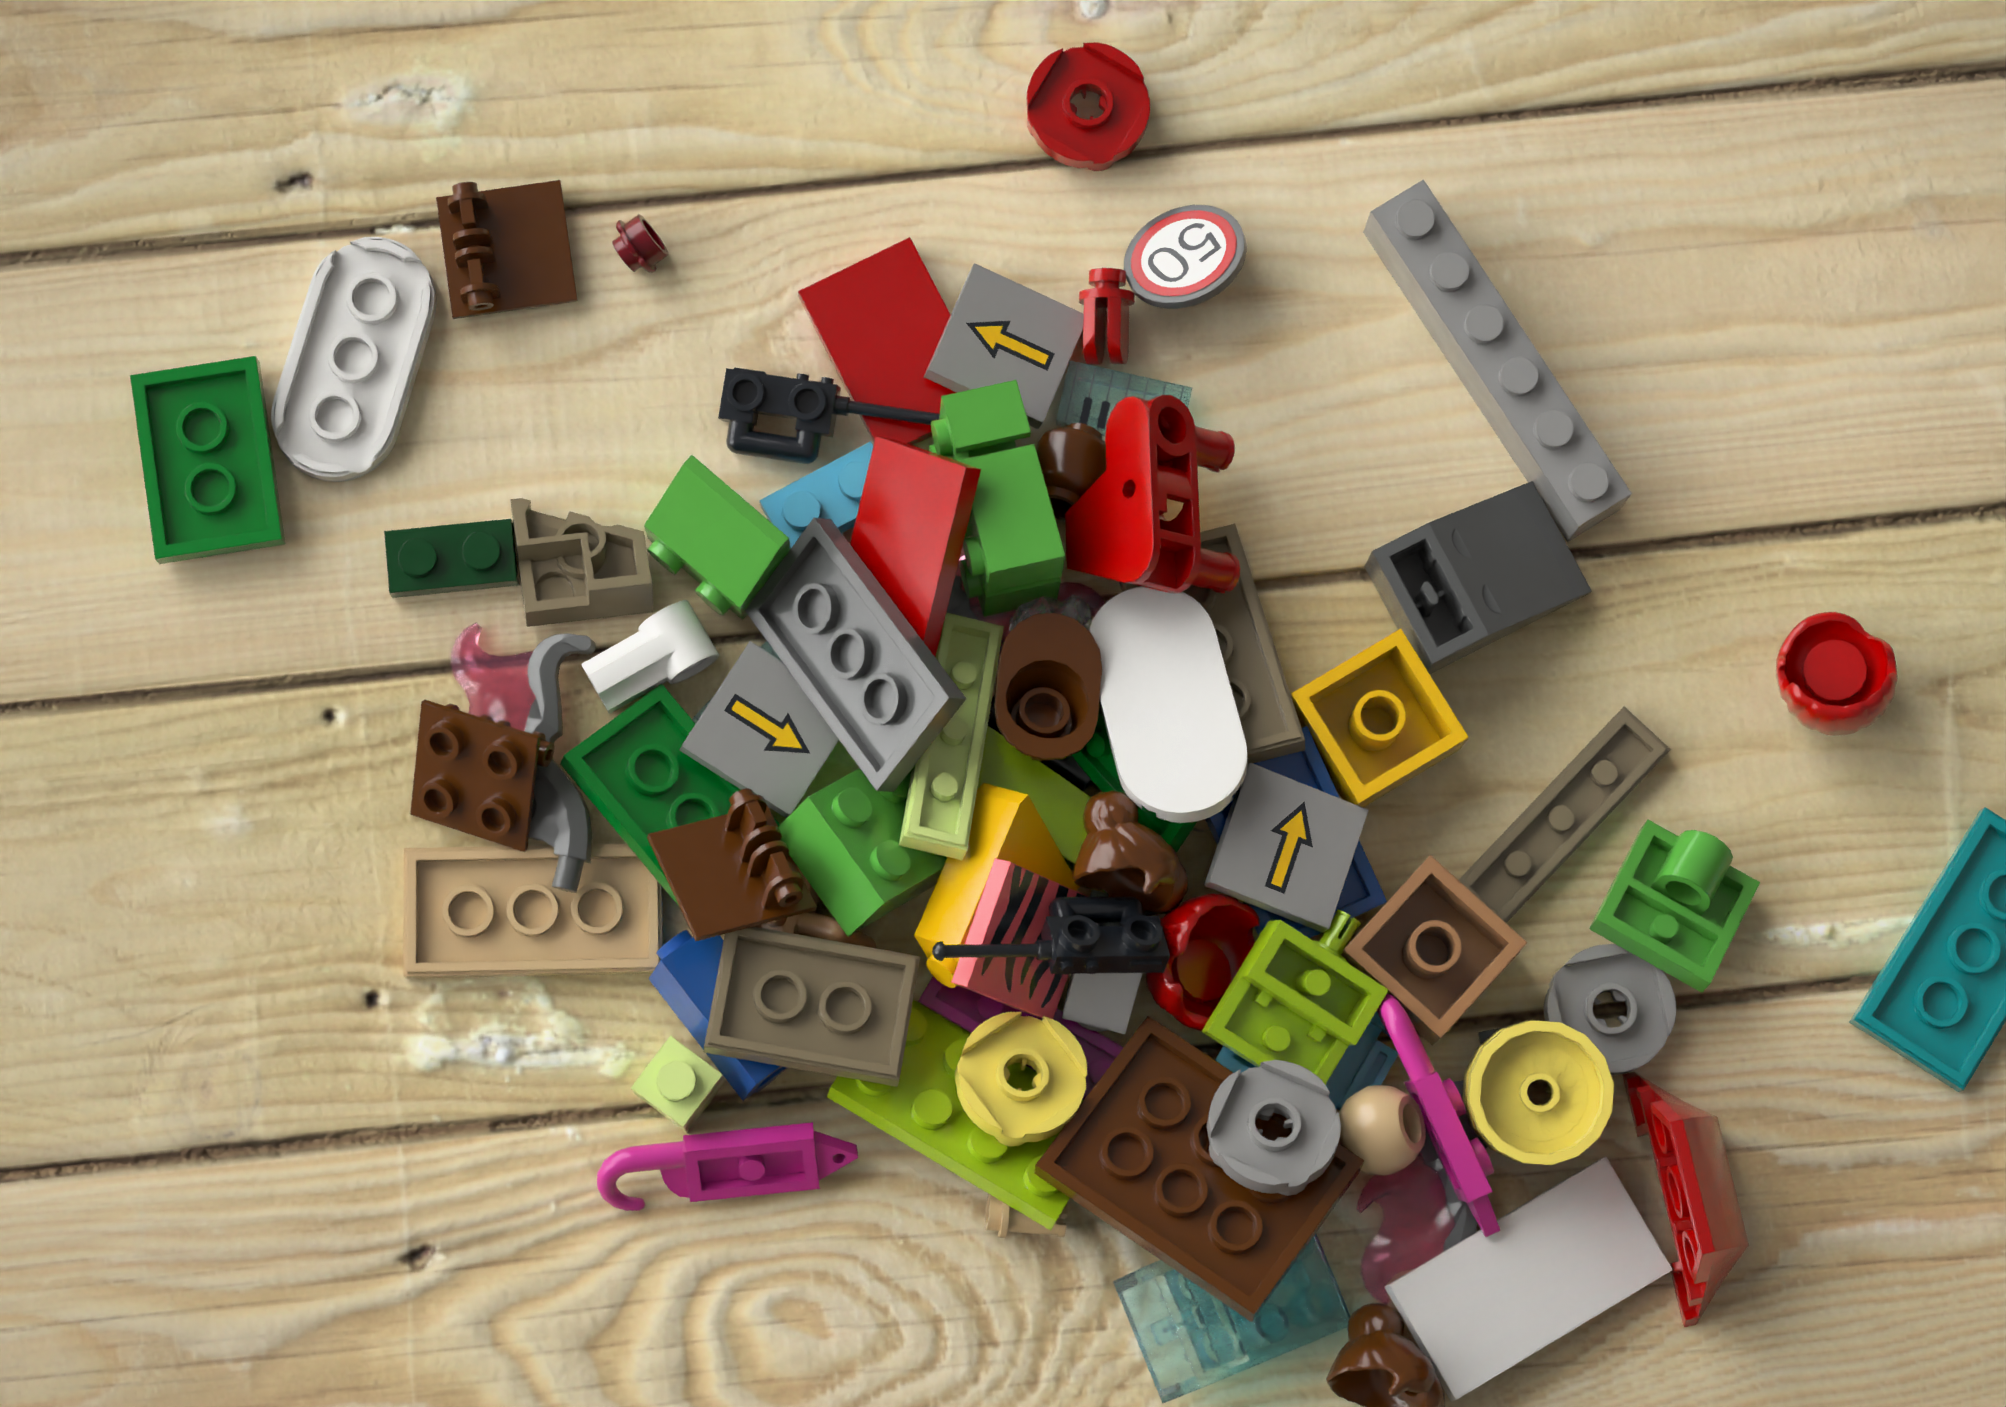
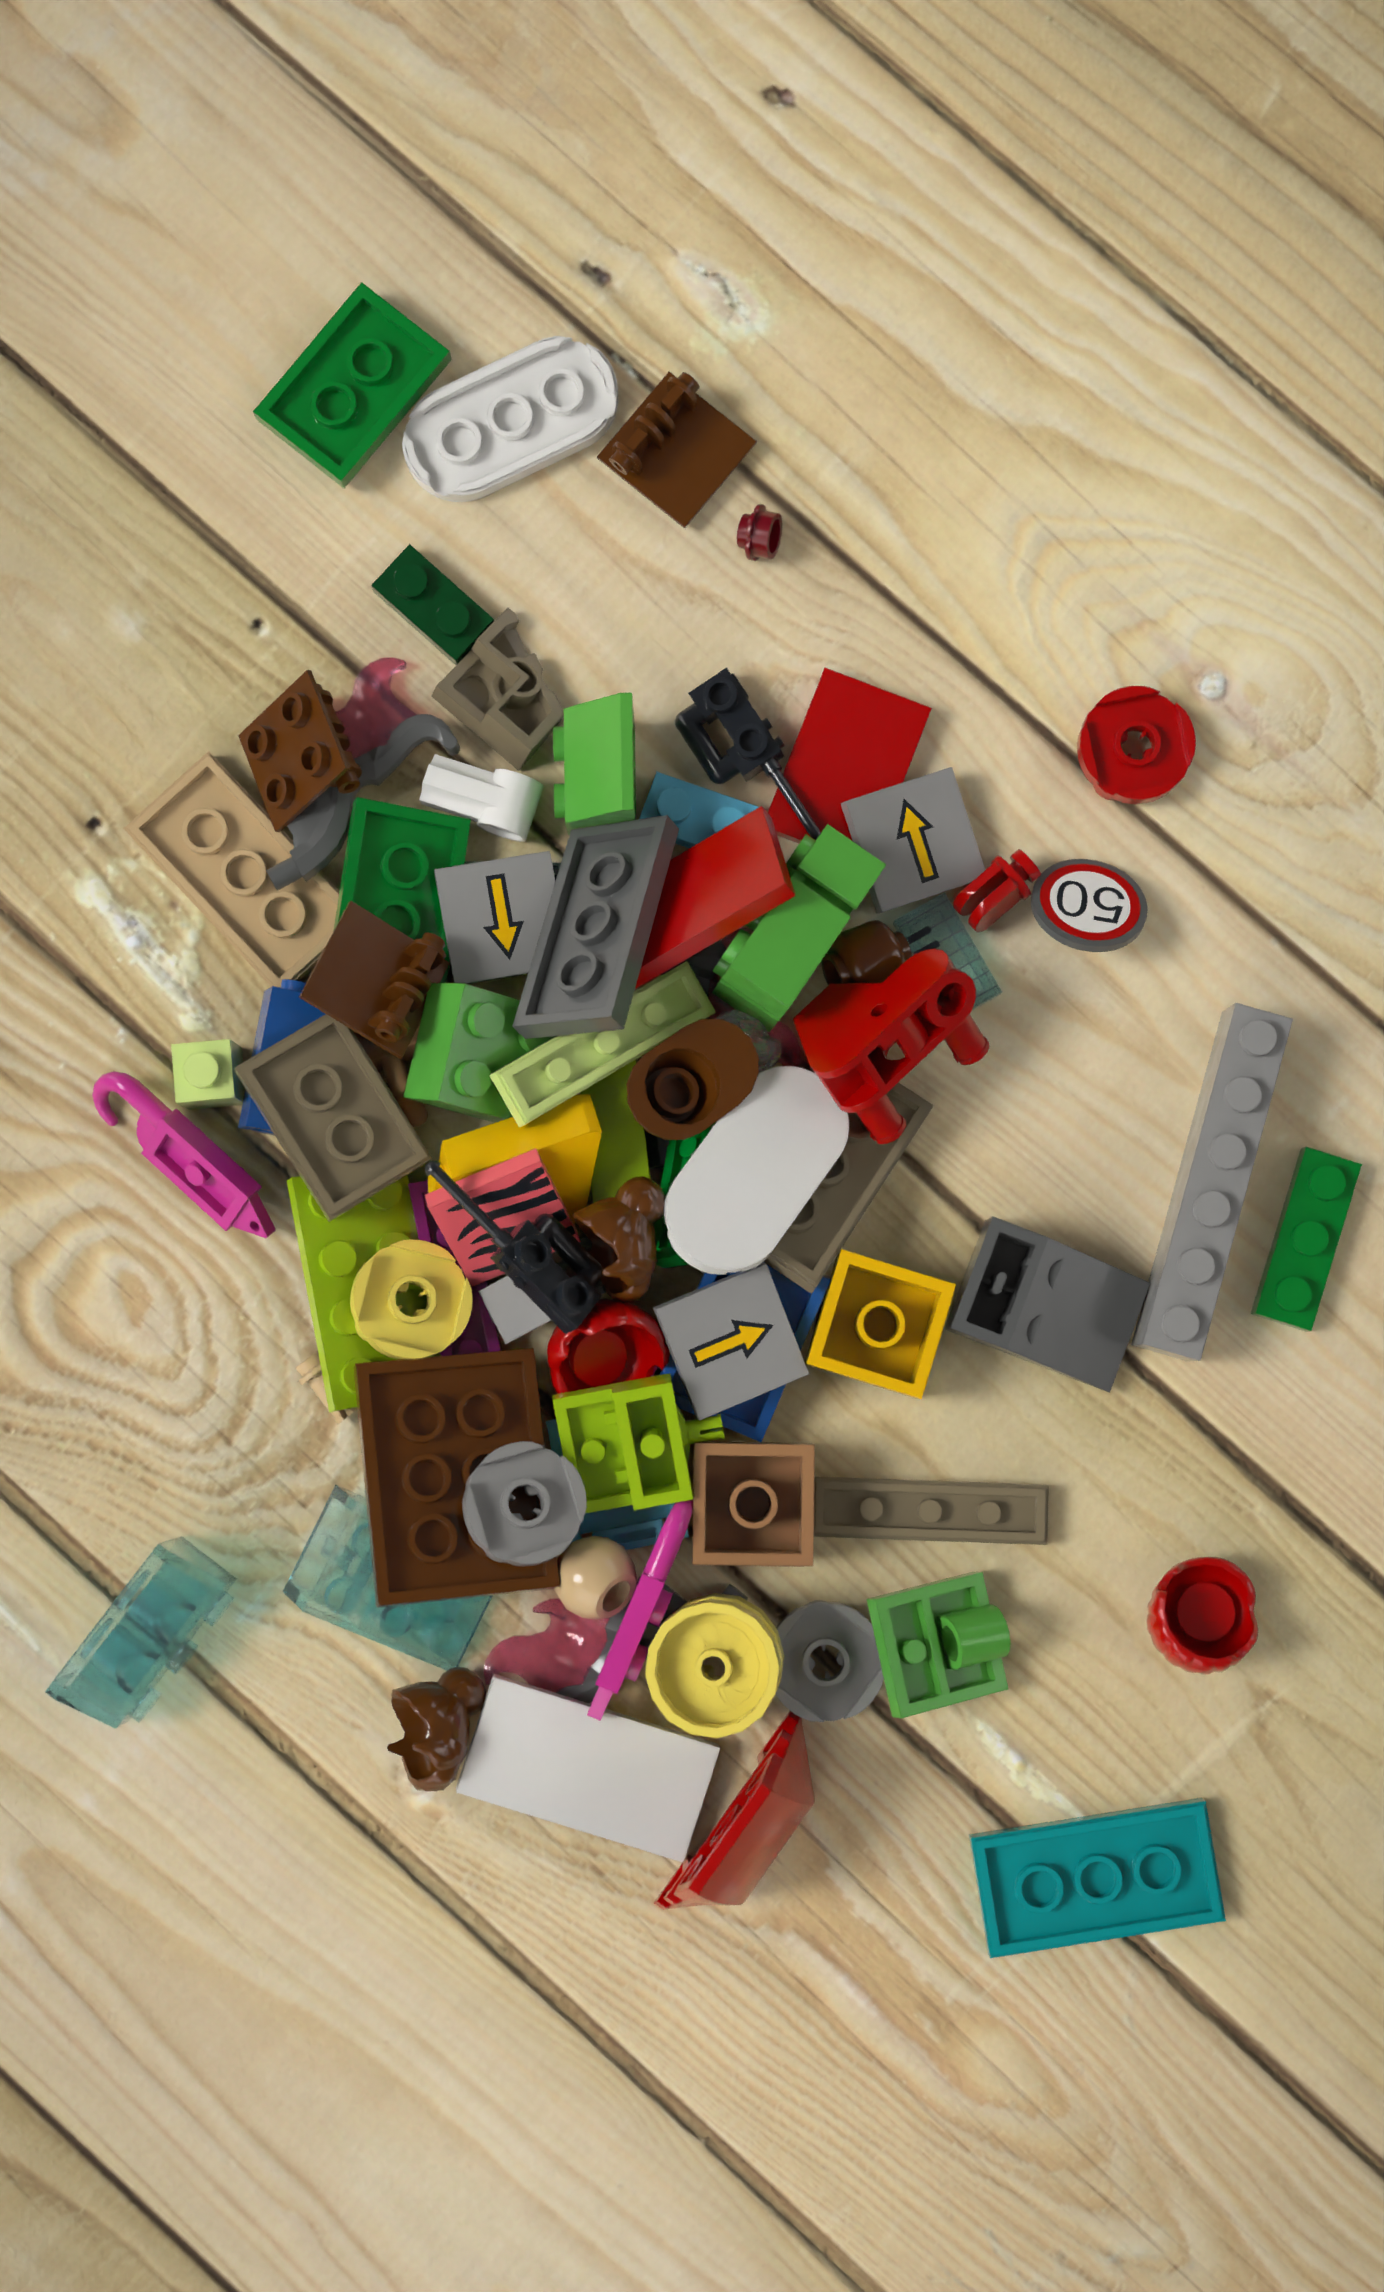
camera: 55 degrees right, 5 degrees up
(1605, 329) = (1306, 1239): none -> green plate

